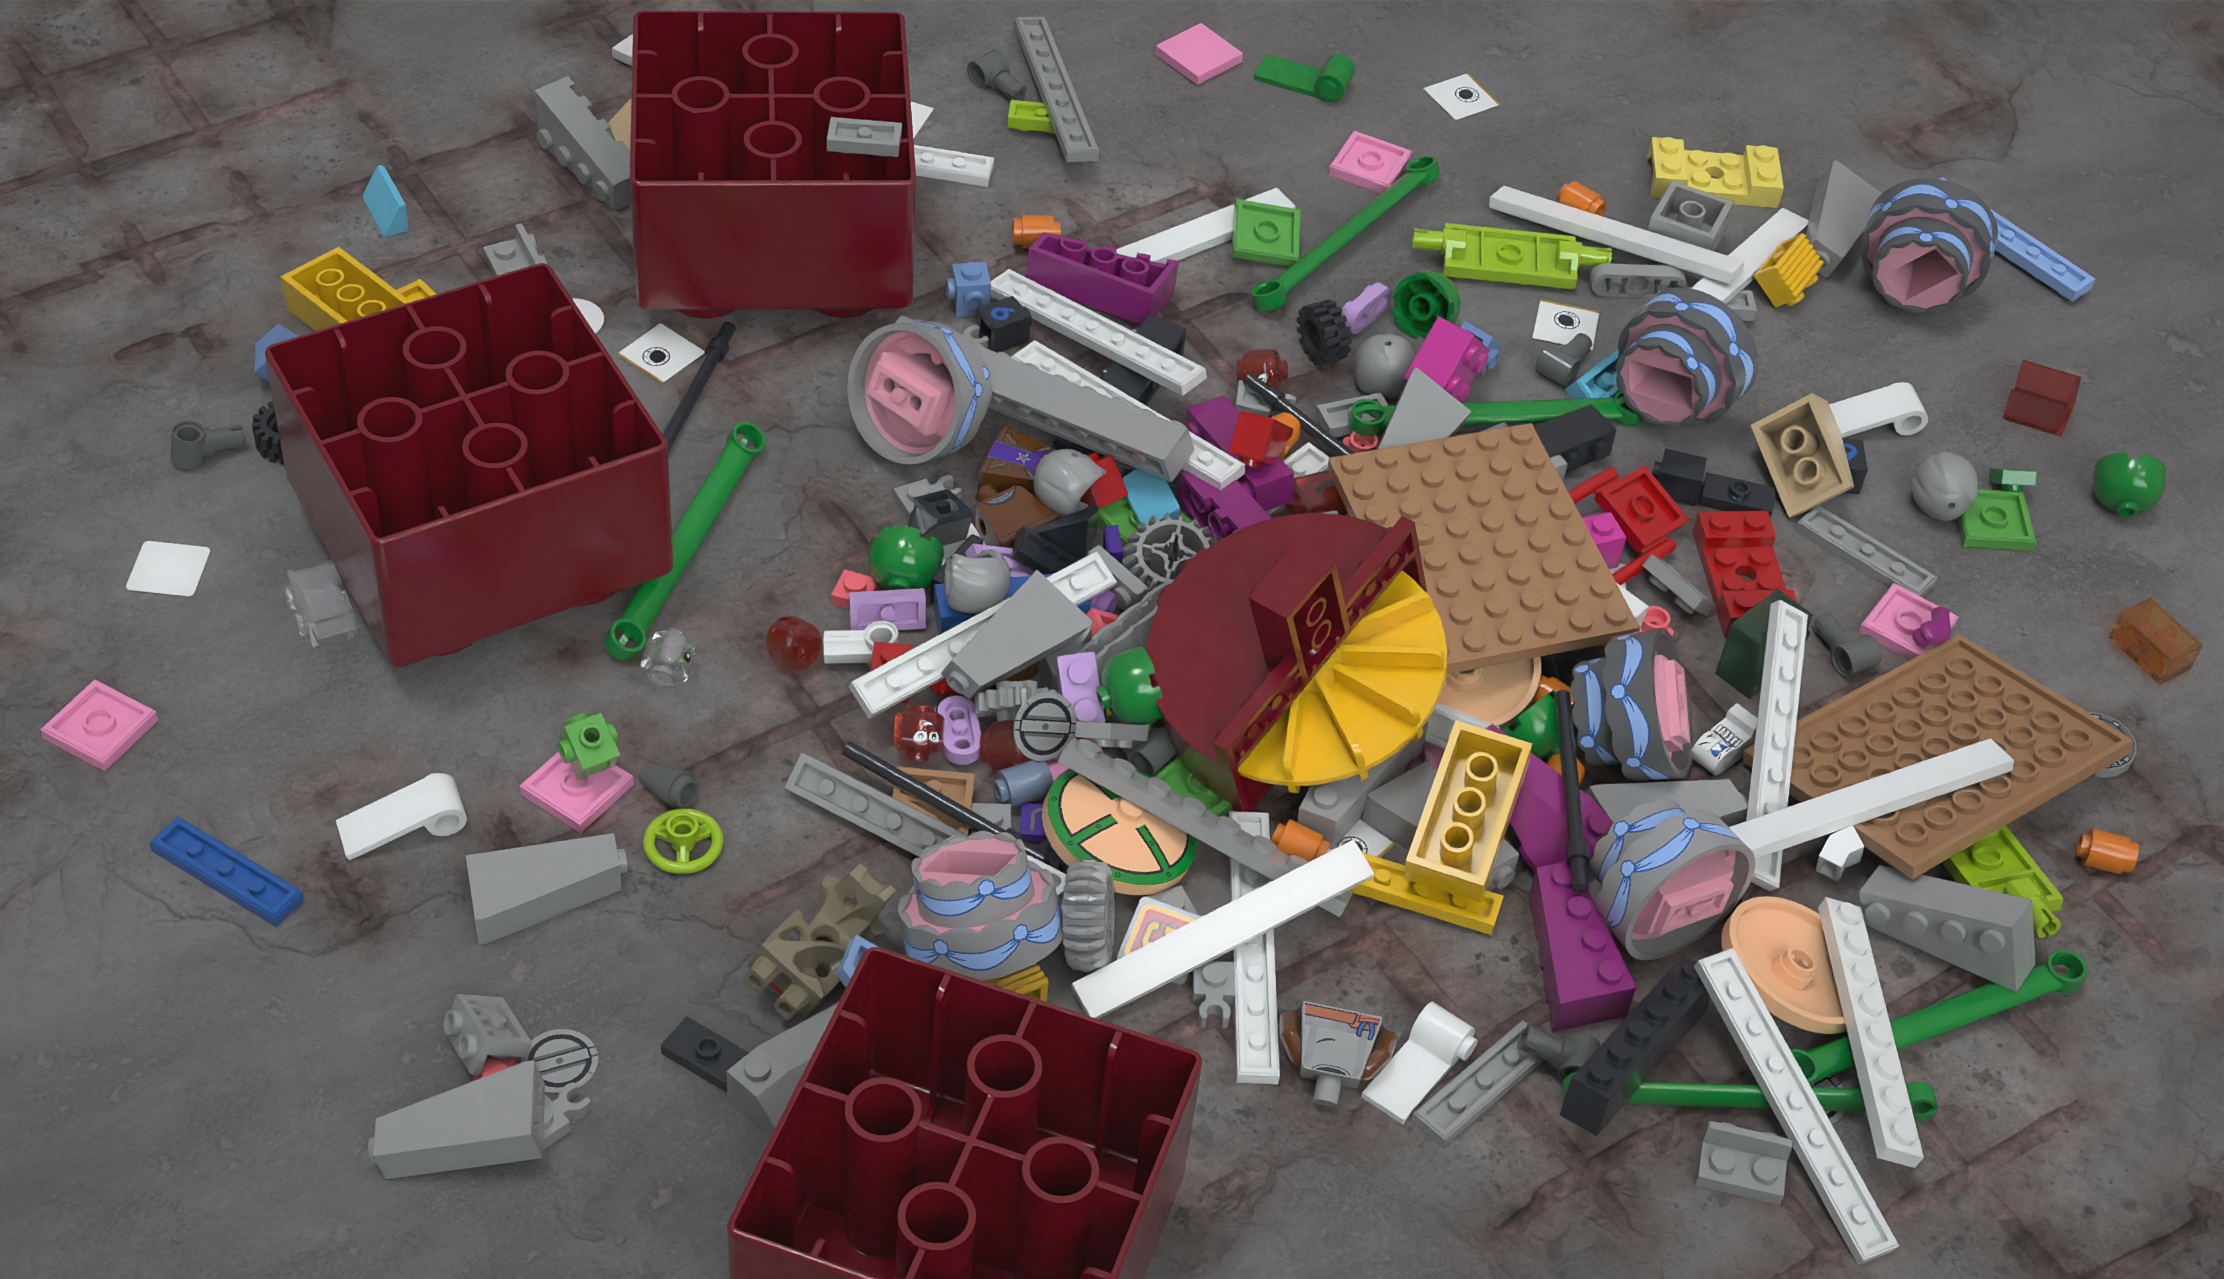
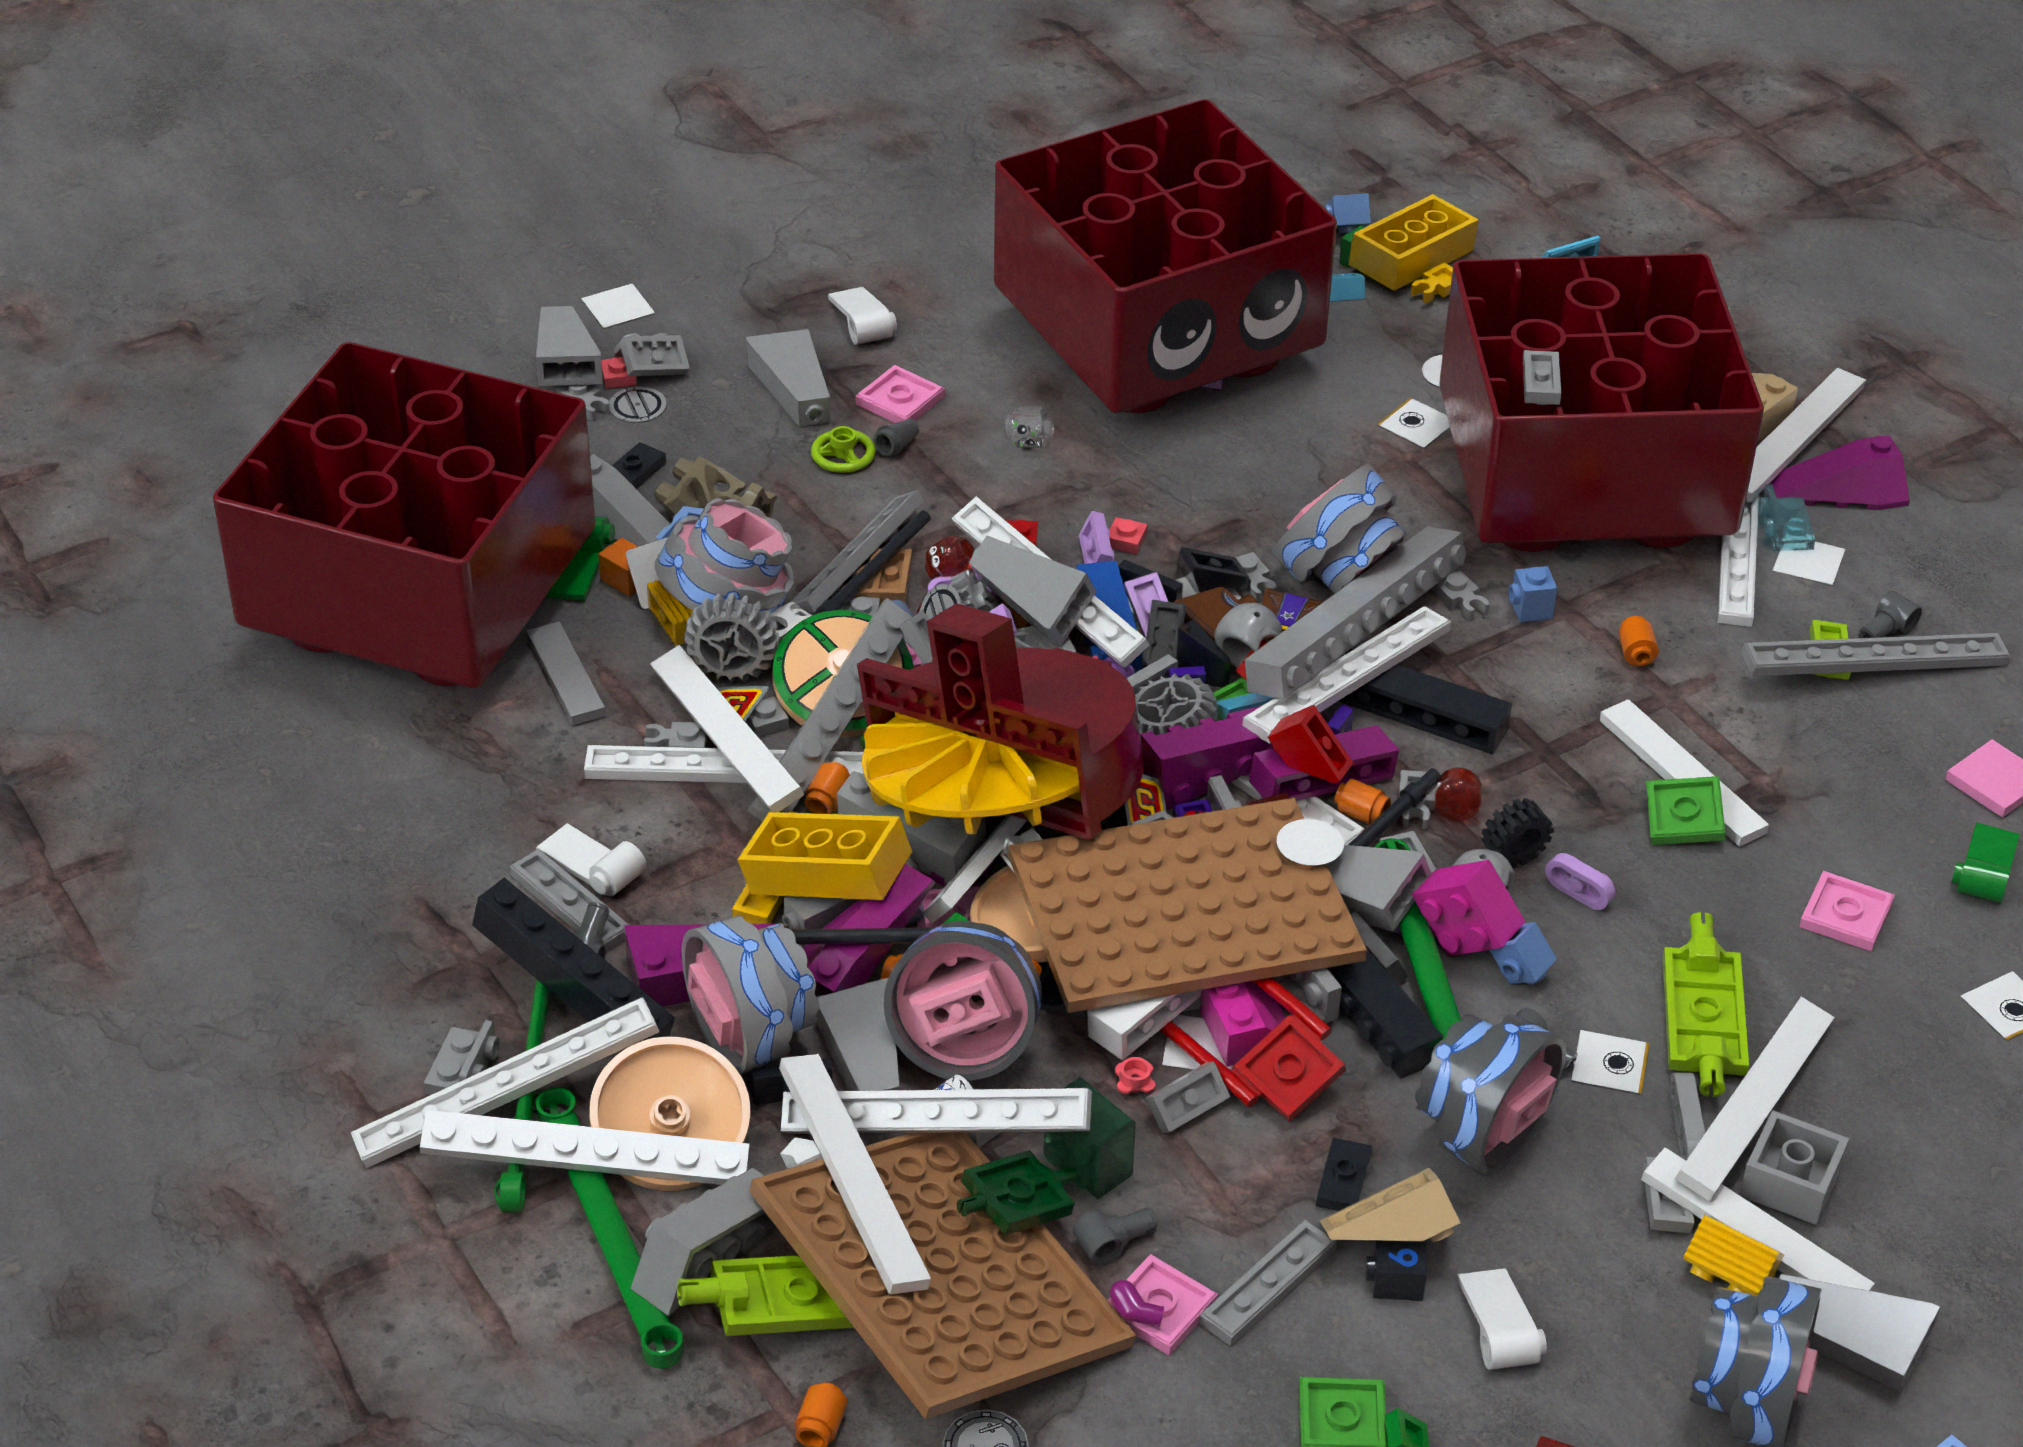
camera: 95 degrees right, 5 degrees down
(99, 725) = (952, 178): bright pink tile -> none
(226, 871) = (814, 244): blue tile -> none
(329, 1092) = (618, 305): none -> white sticker
(588, 744) = (916, 377): bright green brick -> none
(686, 540) = (1179, 436): green piece -> none
(715, 352) = (1420, 447): black bar -> none
(793, 642) = (1051, 493): clear red head -> none
(857, 645) = (1053, 532): white piece -> none
(904, 559) = (1143, 541): green cylinder -> none
(976, 582) = (1087, 556): light grey piece -> none
(1004, 324) = (1489, 618): black brick -> none
(1100, 333) = (1476, 666): white tile -> none
(1102, 277) = (1566, 687): magenta wedge -> none
(1272, 293) = (1831, 943): green piece -> none
(1335, 1046) = (603, 792): torso -> none
(1401, 445) = (1310, 842): none -> white sticker
(1422, 299) = (1592, 924): green cylinder -> none
(1582, 198) = (1818, 1081): orange brick -> none
(1680, 475) = (1356, 1114): black brick -> none
(1735, 546) = (1257, 1161): red piece -> none
(1744, 178) = (1923, 1189): light yellow piece -> none
(1844, 697) = (1018, 1192): none -> dark green plate
(1942, 481) = (1364, 1350): light grey piece -> none

